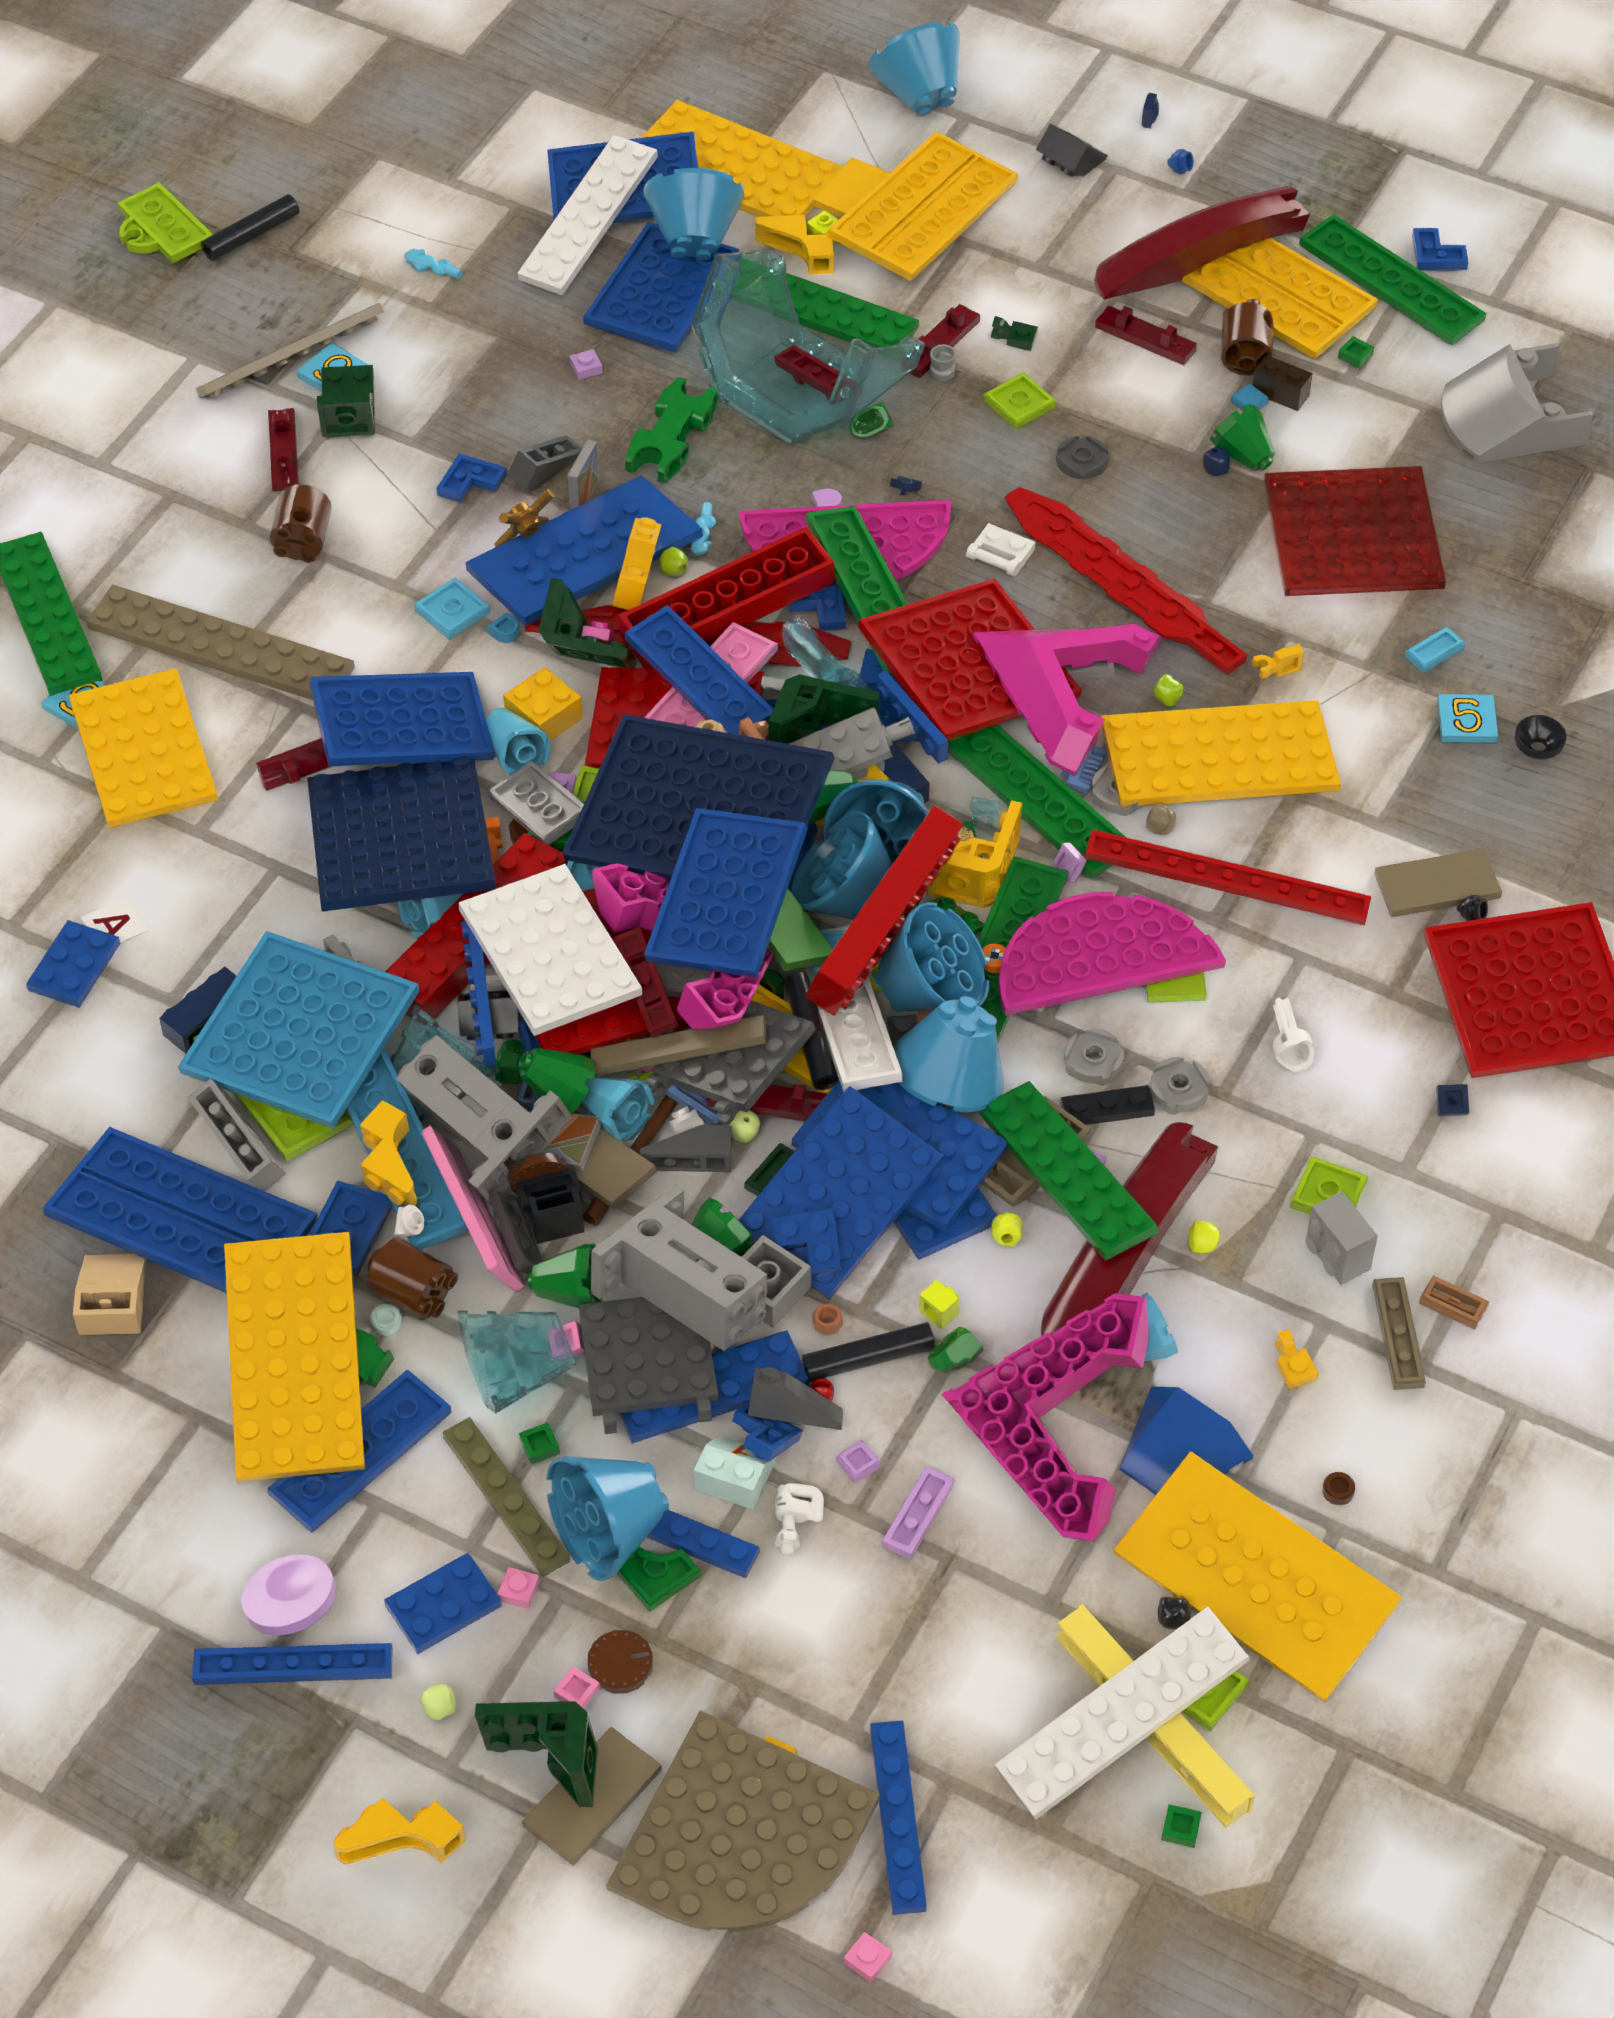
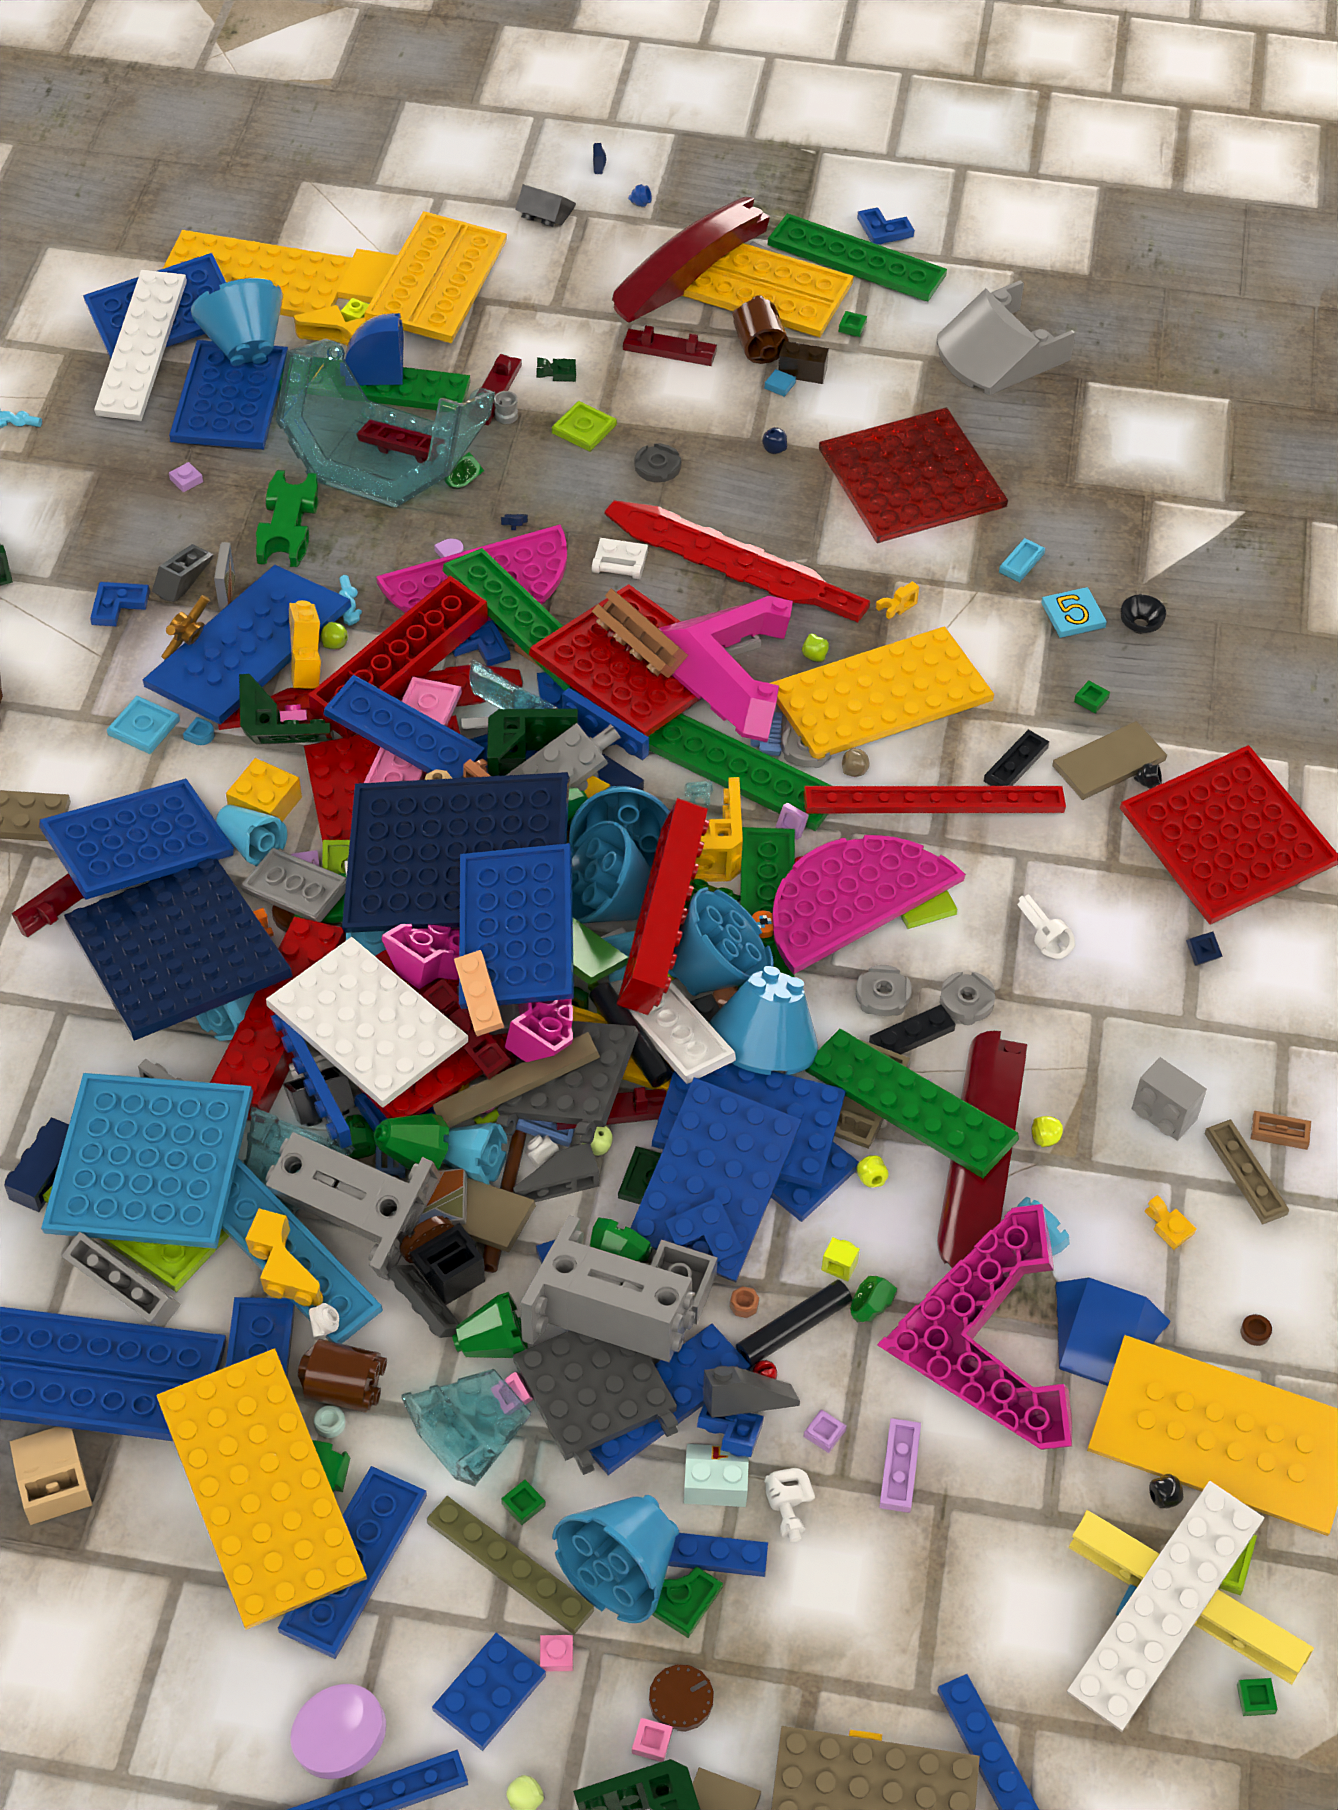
camera: 20 degrees left, 0 degrees up
(472, 1209) = (377, 1289): bright pink tile -> none
(665, 948) = (479, 993): none -> light nougat plate
(825, 273) = (377, 351): none -> blue brick
(921, 66) = (392, 158): dark azure cone -> none
(979, 632) = (640, 634): none -> medium nougat brick
(1246, 438) = (794, 416): green cone -> none
(1325, 1180) = (1130, 1056): lime tile -> none
(1335, 858) = (1017, 760): none -> black plate
(1446, 811) = (1092, 696): none -> green plate

